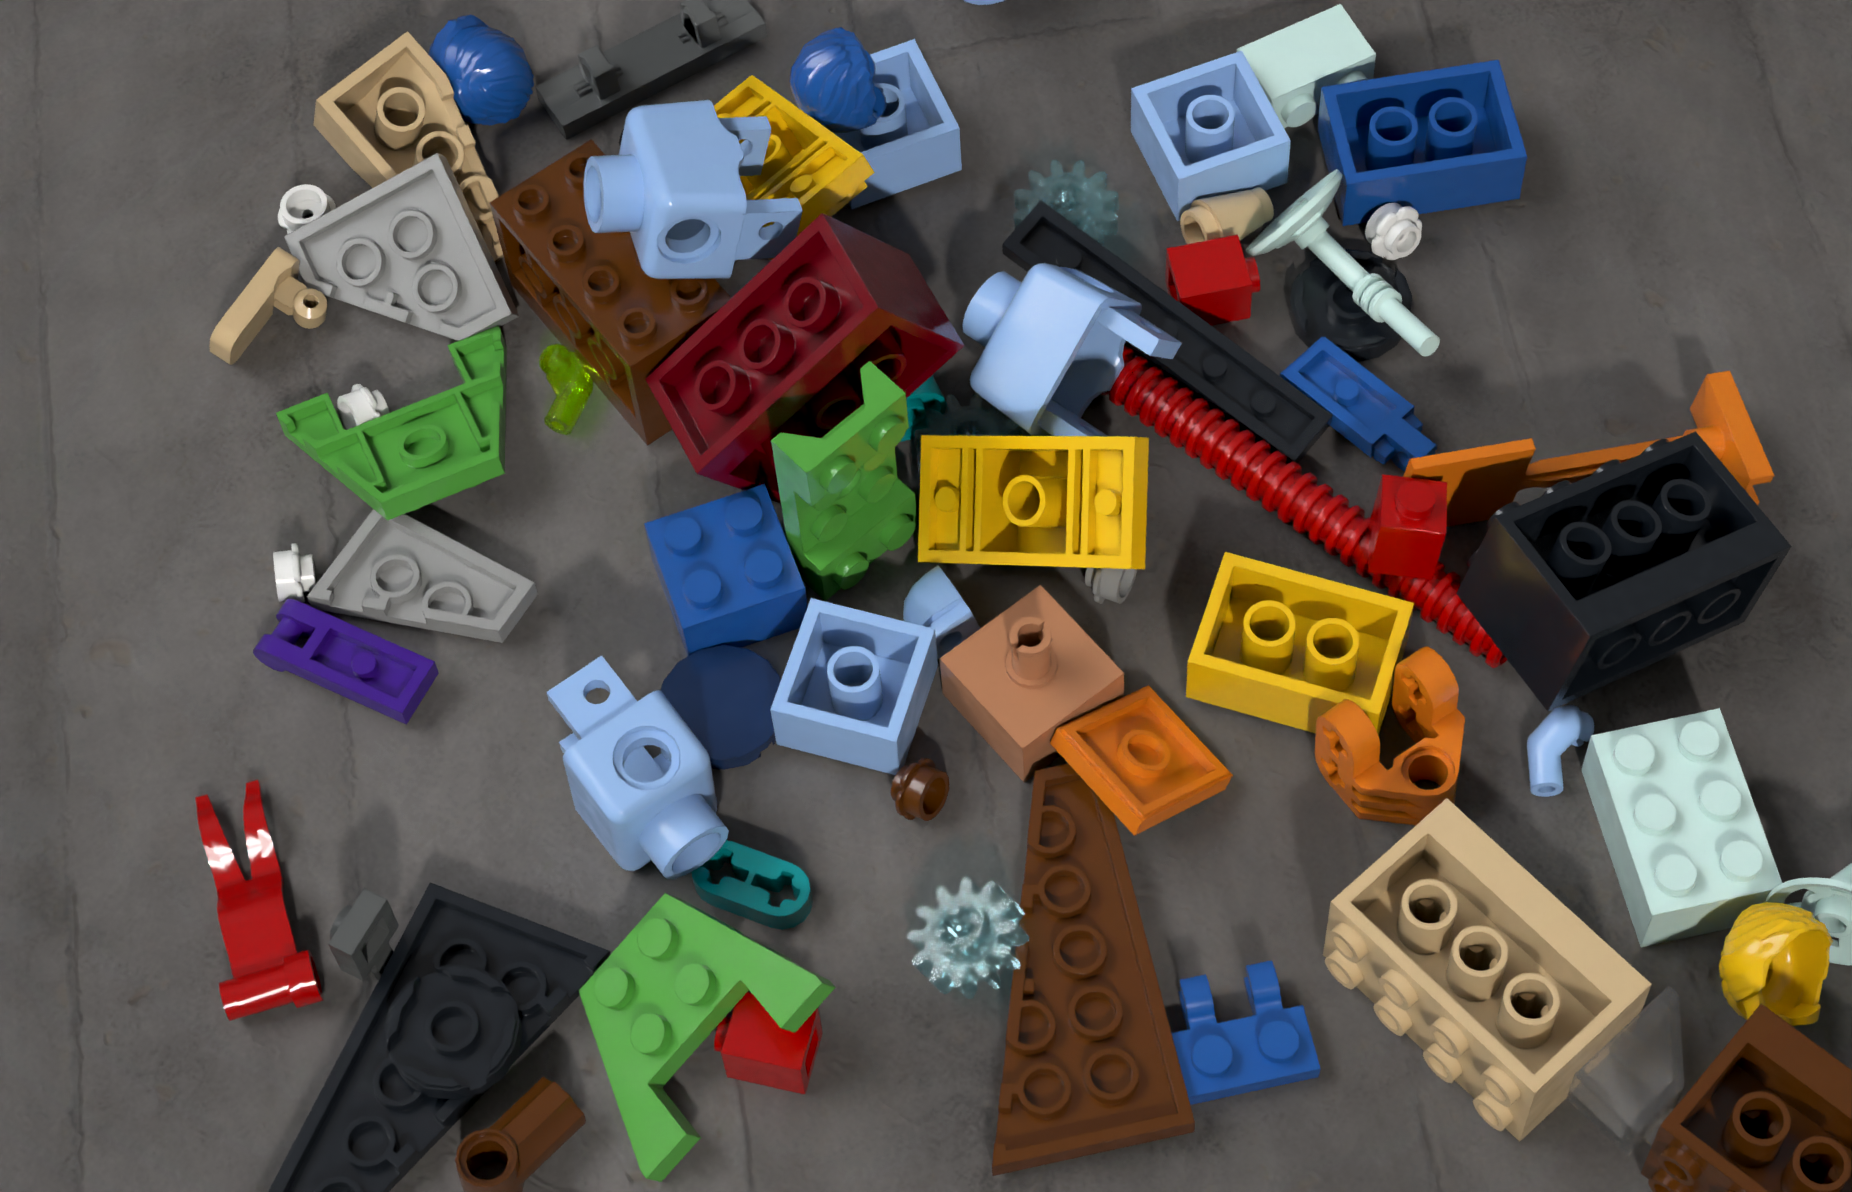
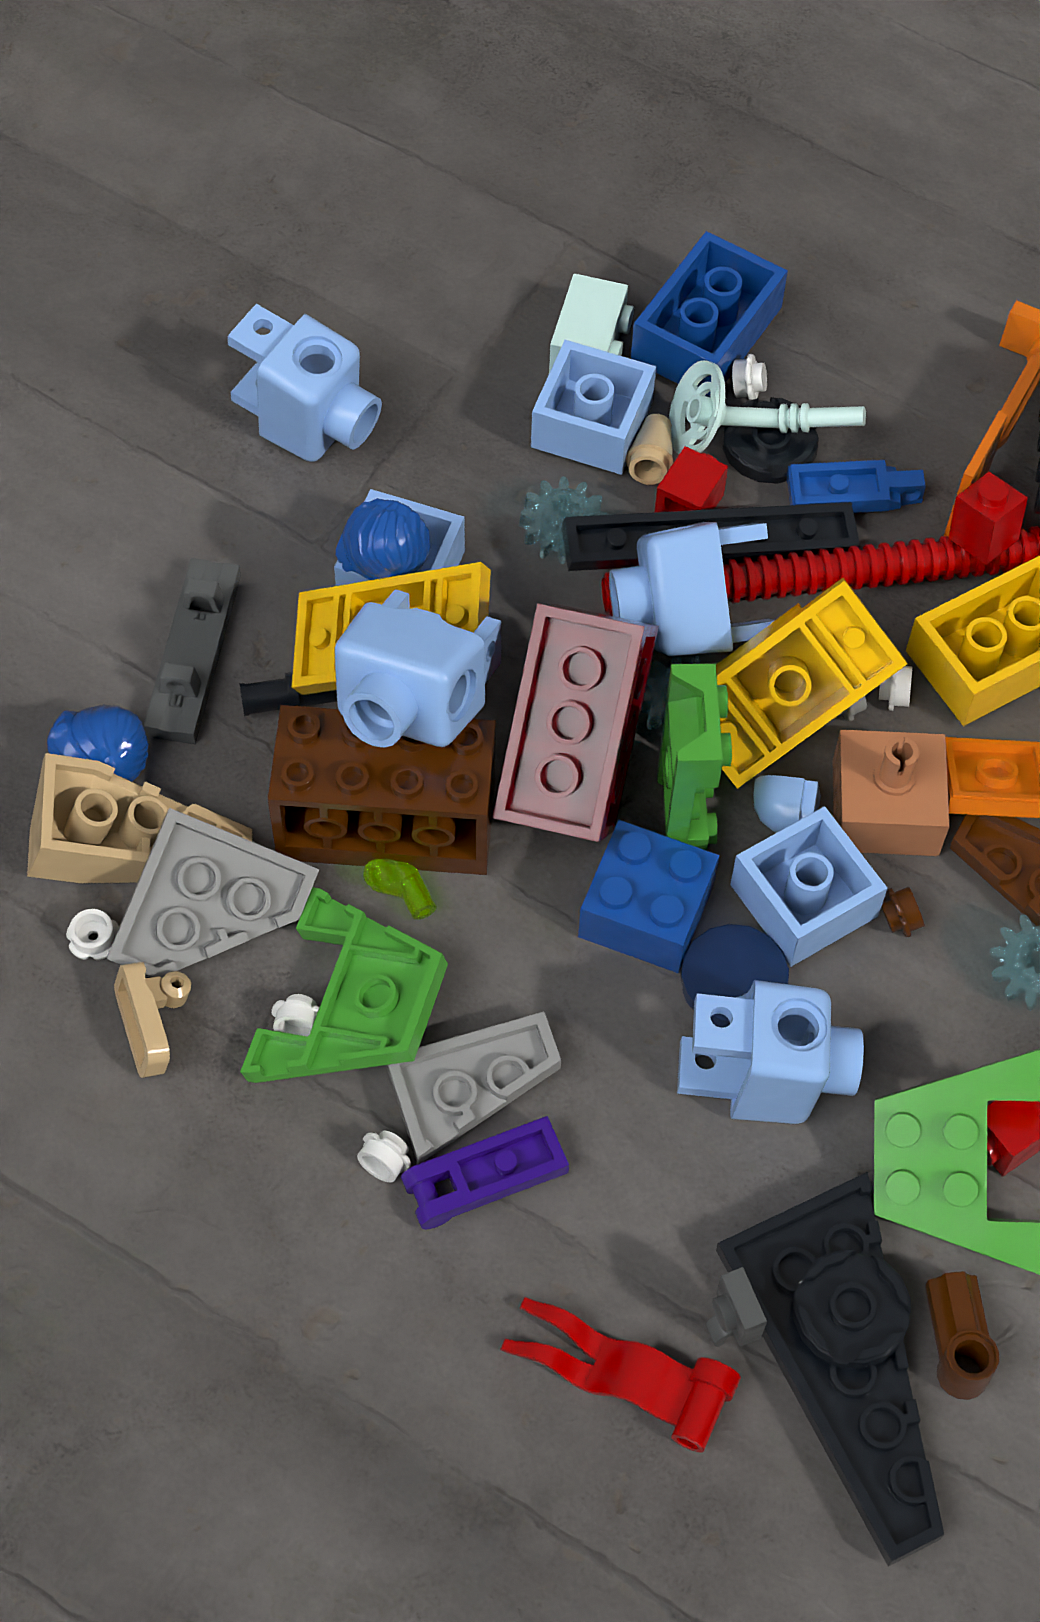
camera: 55 degrees left, 0 degrees up
(746, 897) = (898, 1064): teal beam -> none
(1169, 607) = (897, 688): none -> white plate

